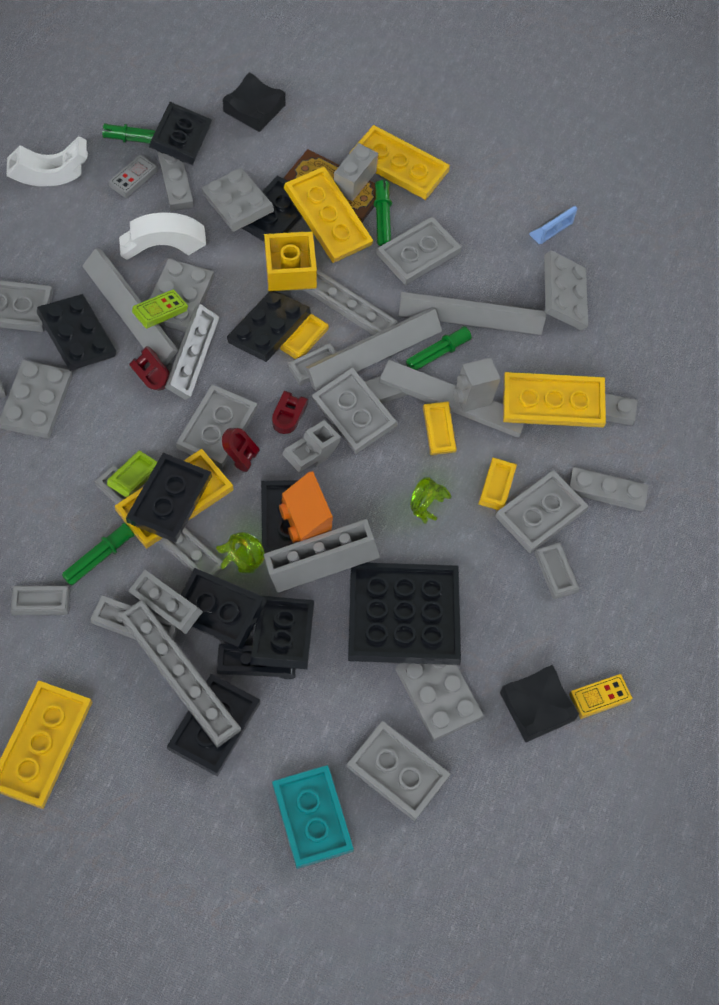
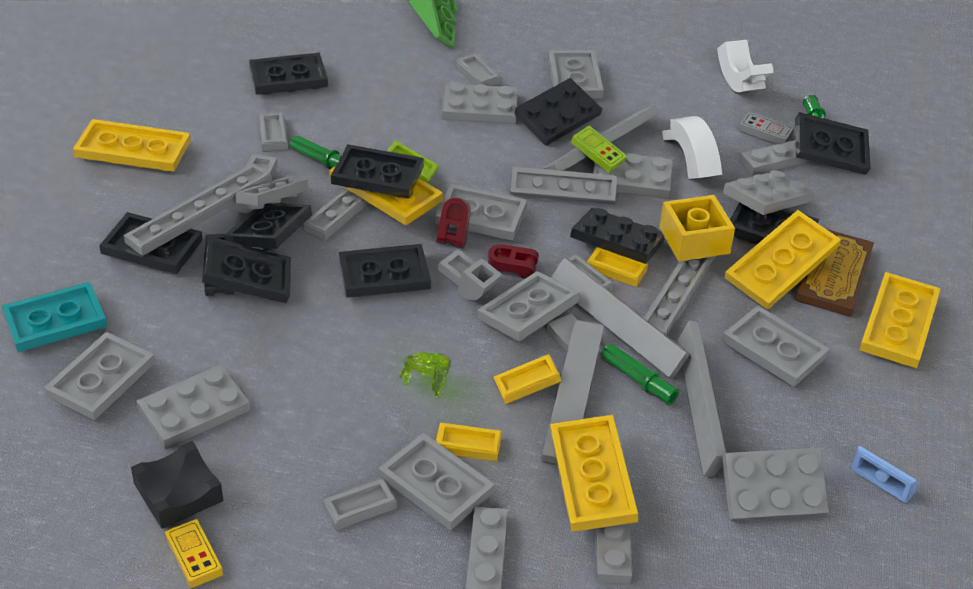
camera: 85 degrees right, 20 degrees down
(155, 375) = (535, 157): dark red plate -> none
(247, 556) = (342, 243): clear neon green piece -> none
(254, 102) = (912, 194): black brick -> none
(306, 509) = (379, 266): orange slope -> none
(321, 555) = (334, 285): light grey brick -> none
(356, 171) = (852, 270): light grey brick -> none
(383, 206) = (815, 307): green axle -> none
(404, 614) = (279, 360): black plate -> none
(476, 384) = (580, 383): light grey brick -> none

